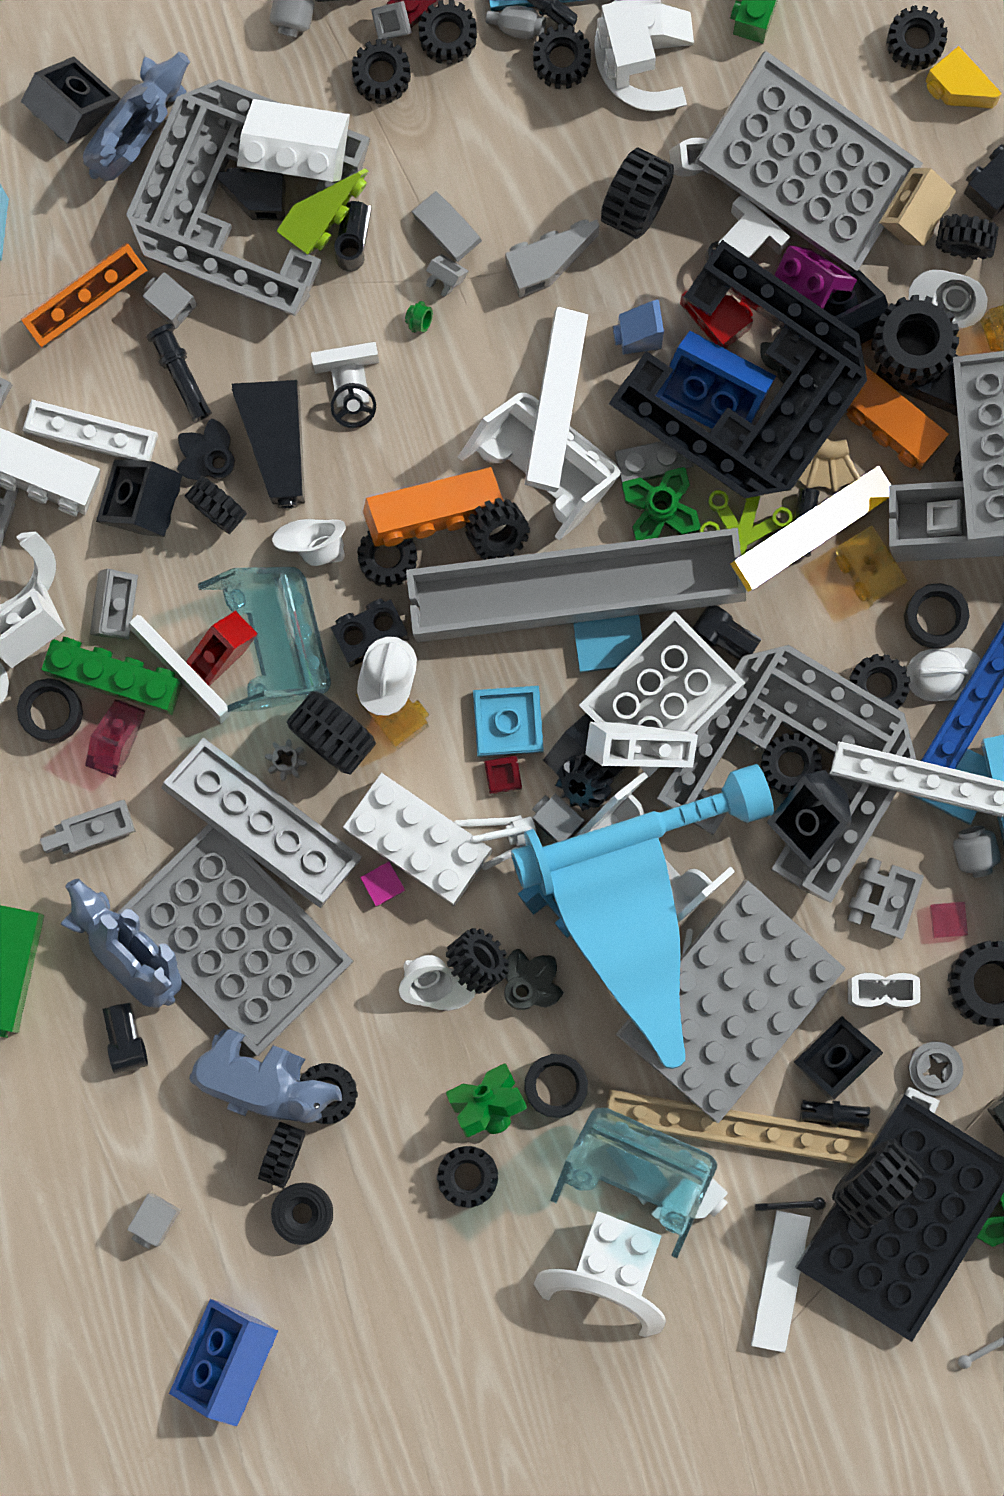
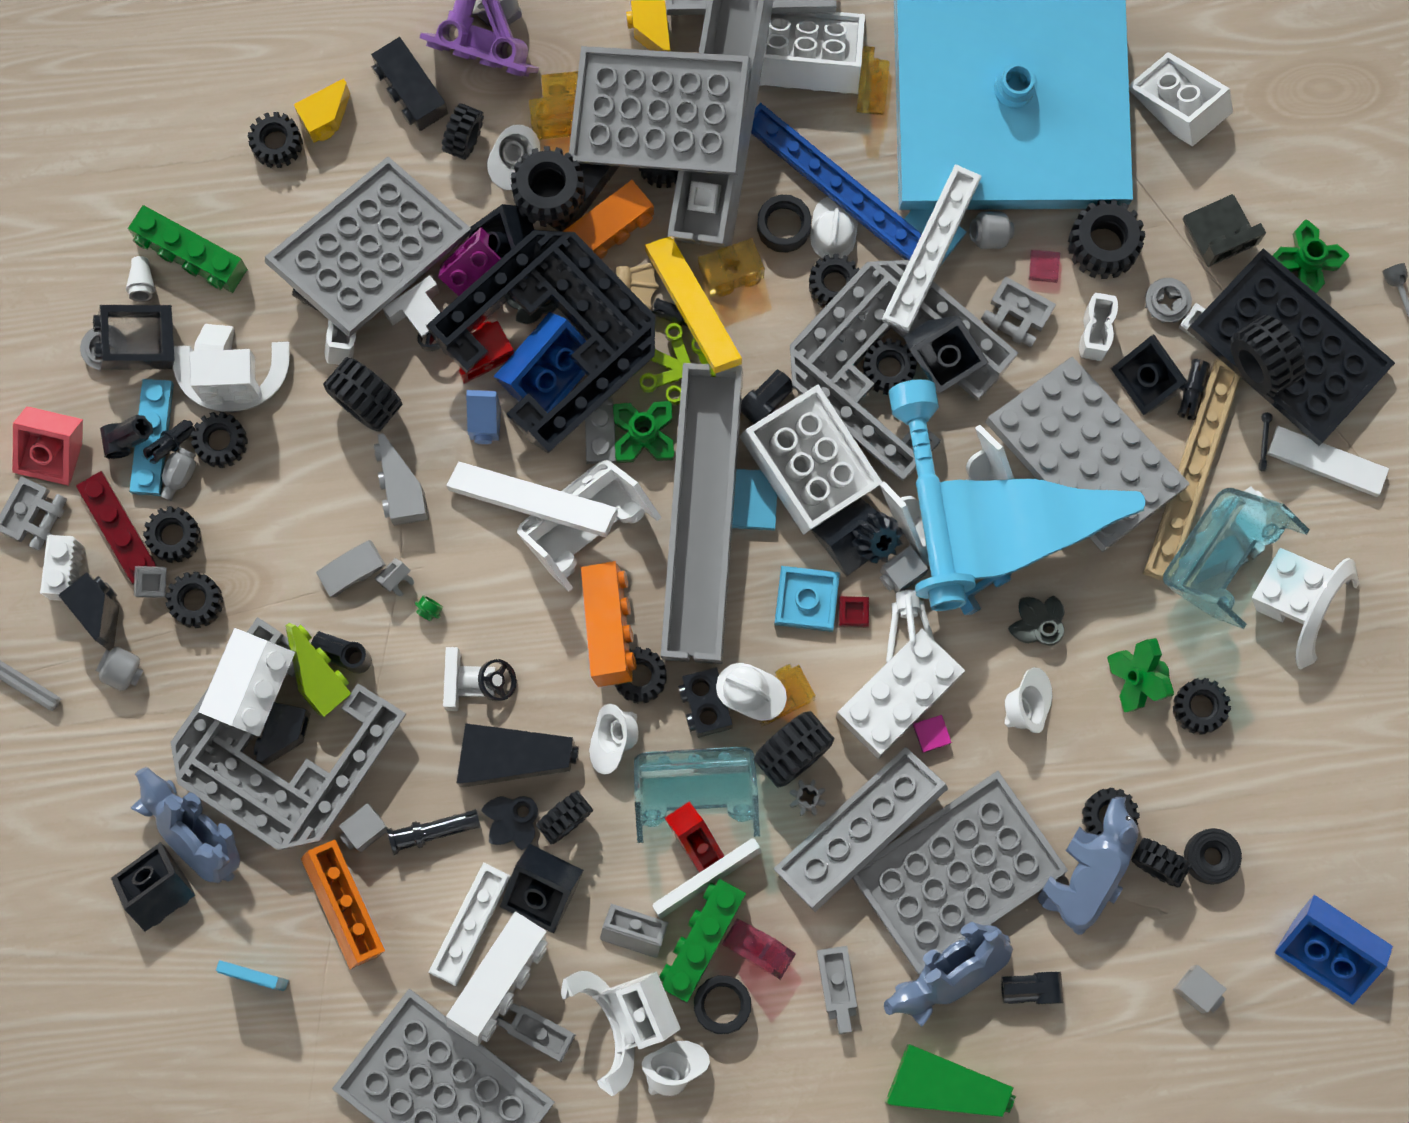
camera: 85 degrees left, 5 degrees down
(477, 960) = (1017, 660): black tyre -> none
(490, 518) = (638, 572): black tyre -> none
(581, 1085) = (1139, 594): black tyre -> none
(639, 745) = (857, 484): white slope -> none
(918, 206) = (426, 166): tan brick -> none

